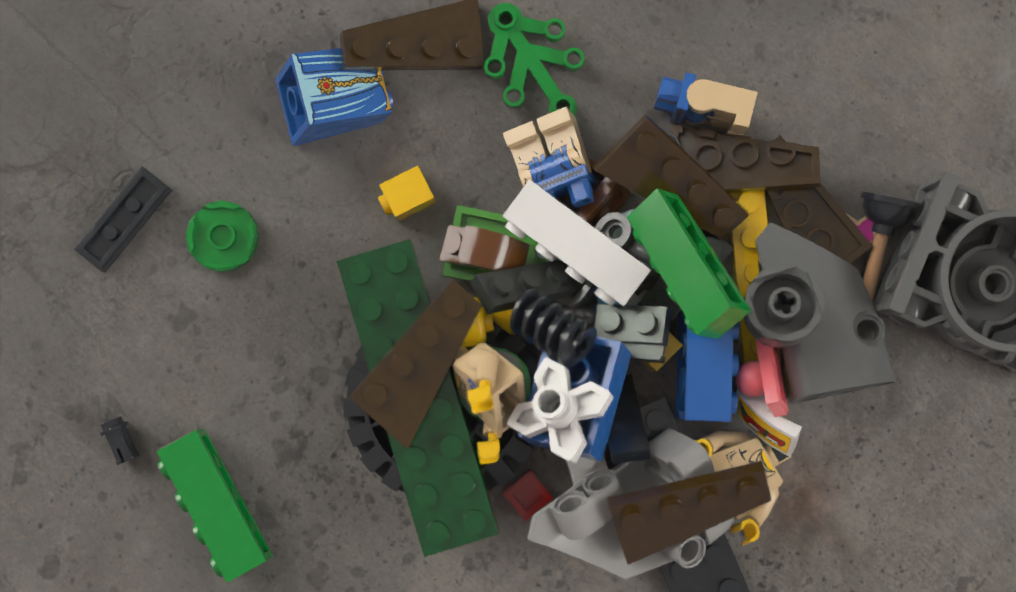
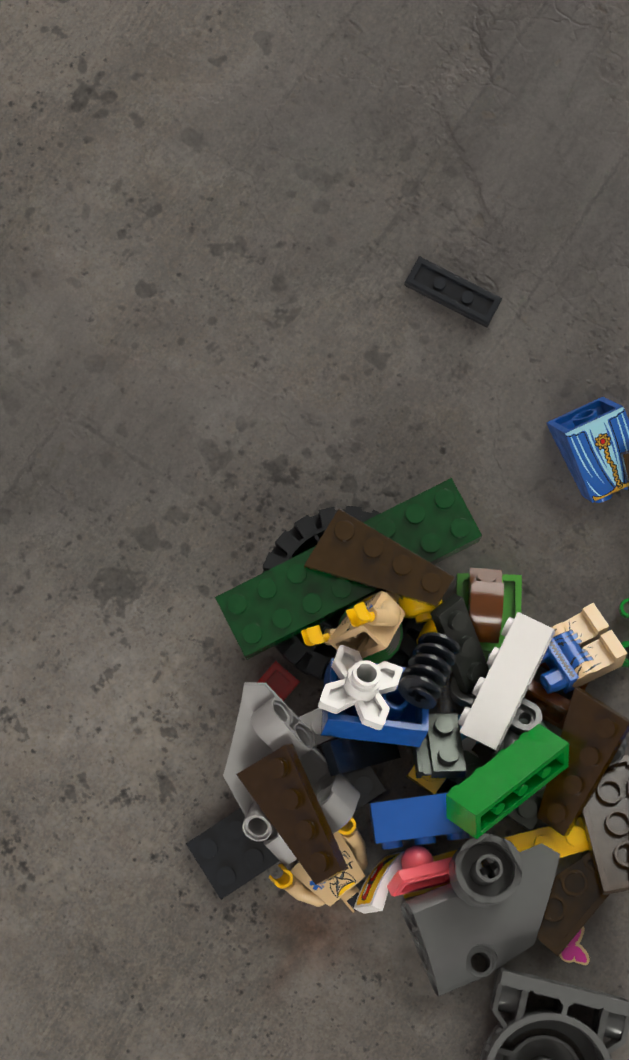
camera: 80 degrees right, 5 degrees down
(119, 440) = (263, 325): black pin -> none
(213, 504) = (223, 415): green brick -> none
(222, 236) = (454, 378): green tile -> none
(406, 194) = (522, 529): yellow brick -> none
(885, 214) = (589, 964): black piece -> none

